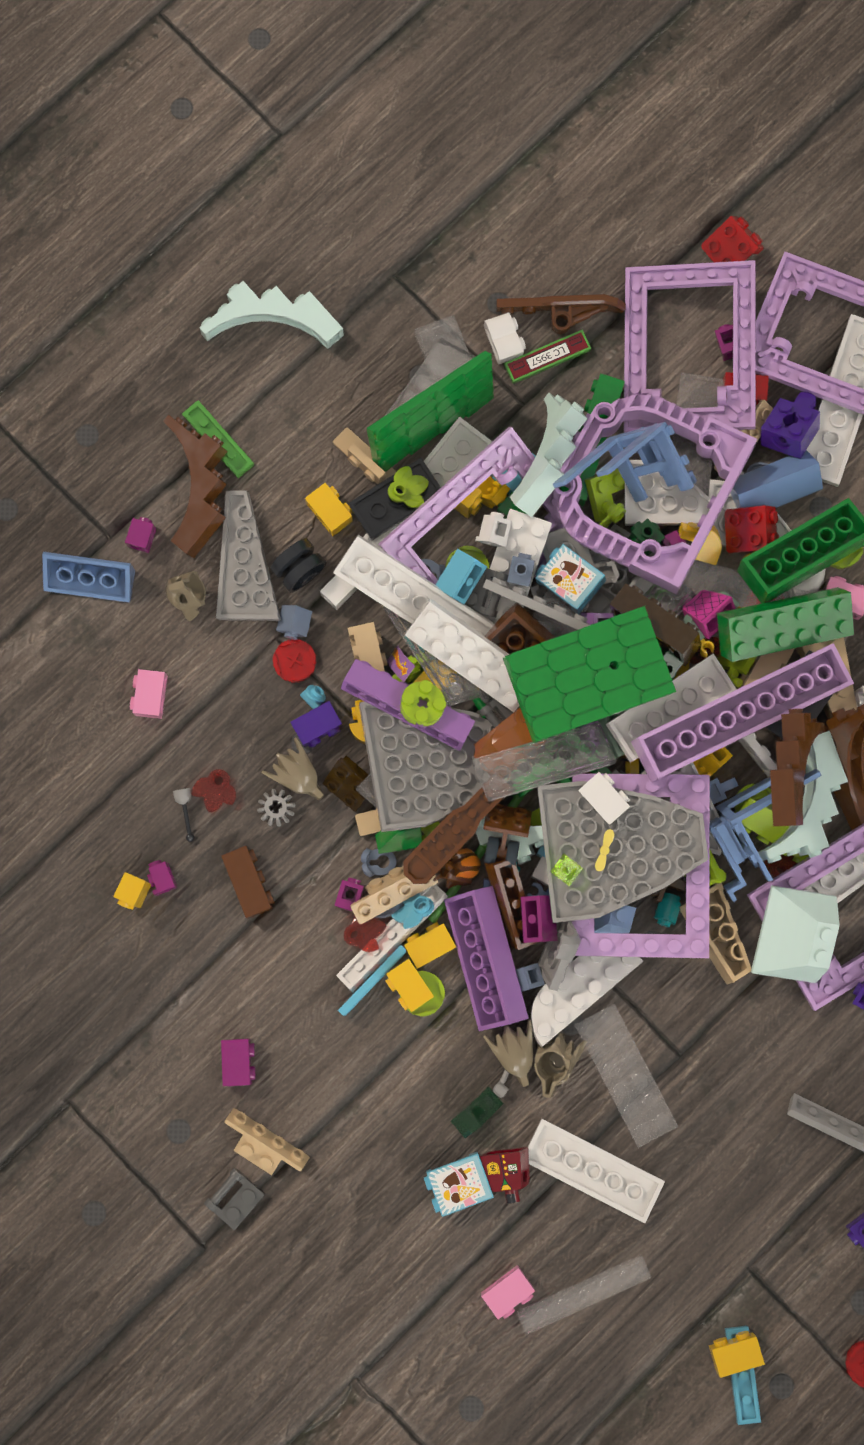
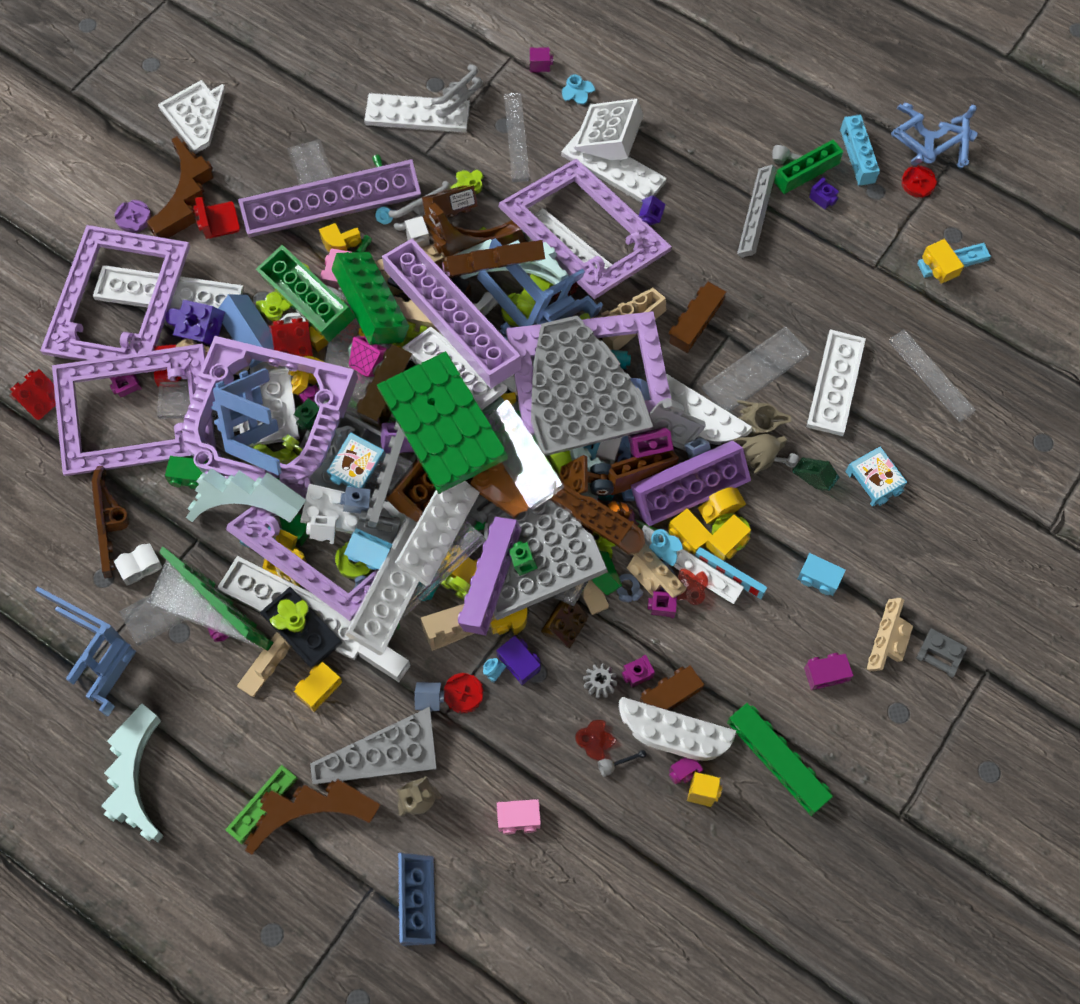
camera: 100 degrees left, 15 degrees down
(141, 534) = (366, 856): magenta brick -> none
(151, 982) = (779, 759): none -> green brick
(198, 874) = (675, 731): none -> white plate
(282, 858) = (637, 678): none -> magenta brick
(296, 773) = (565, 666): dark tan piece -> none
(298, 565) = (376, 699): black wheel -> none
(350, 1085) = (821, 574): none -> medium azure brick
(386, 301) = (112, 662): none -> medium blue piece
(400, 664) = (453, 592): medium lavender sticker -> none
(414, 747) = (523, 558): none -> green brick
(431, 694) = (481, 551): lime plate -> none
(456, 990) = (720, 503): none -> yellow brick
(507, 1171) = (855, 441): dark red torso -> none
(508, 1293) = (948, 427): bright pink brick -> none
(547, 356) = (150, 524): tile -> none
(566, 869) = (608, 418): clear neon green tile -> none
(604, 850) = (596, 394): light yellow piece -> none
(605, 798) = (543, 396): white brick -> none
(710, 1021) = (697, 316): none -> reddish brown brick
(797, 935) = (618, 255): light aqua slope -> none
(807, 510) = (273, 306): none -> lime plate

